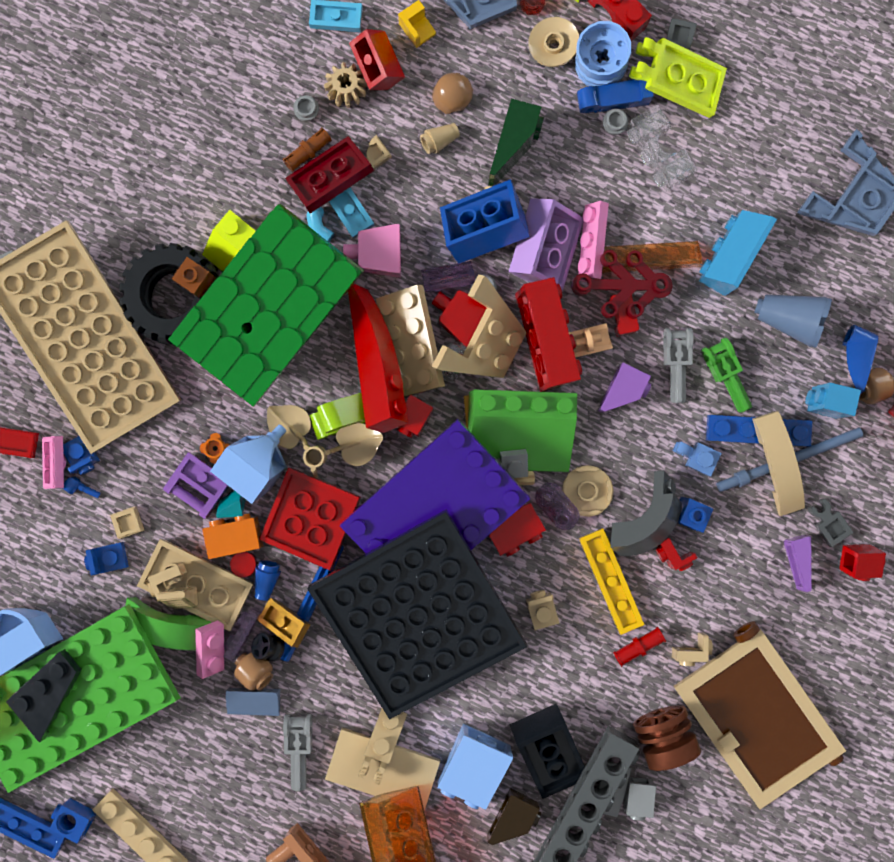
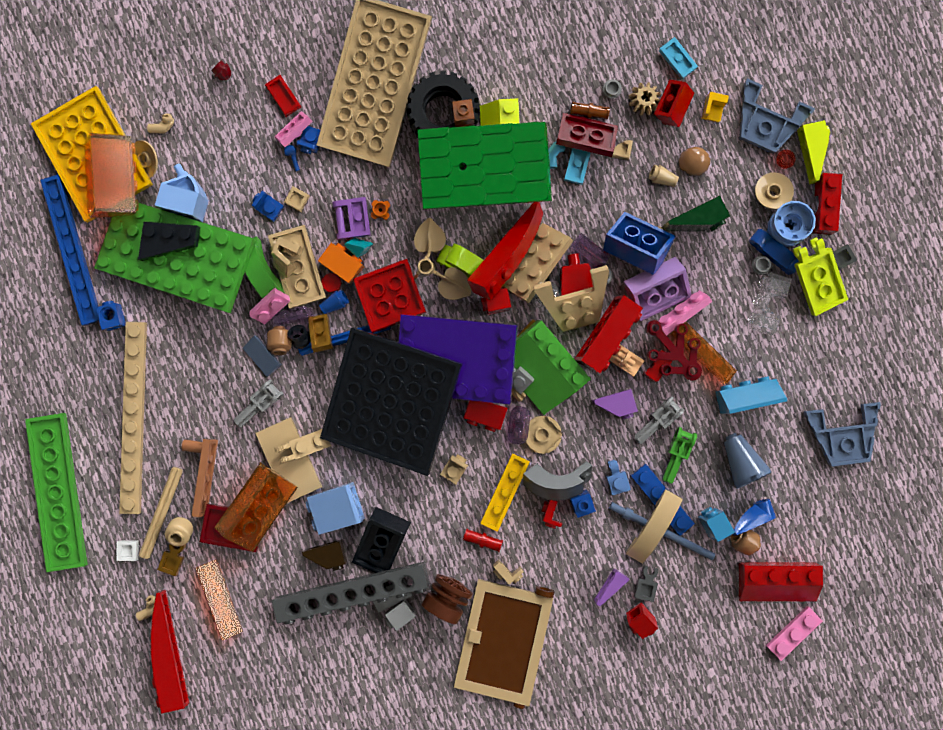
camera: 45 degrees right, 0 degrees up
(252, 464) = (390, 237): light blue piece -> none
(377, 250) = (569, 199): bright pink torso -> none

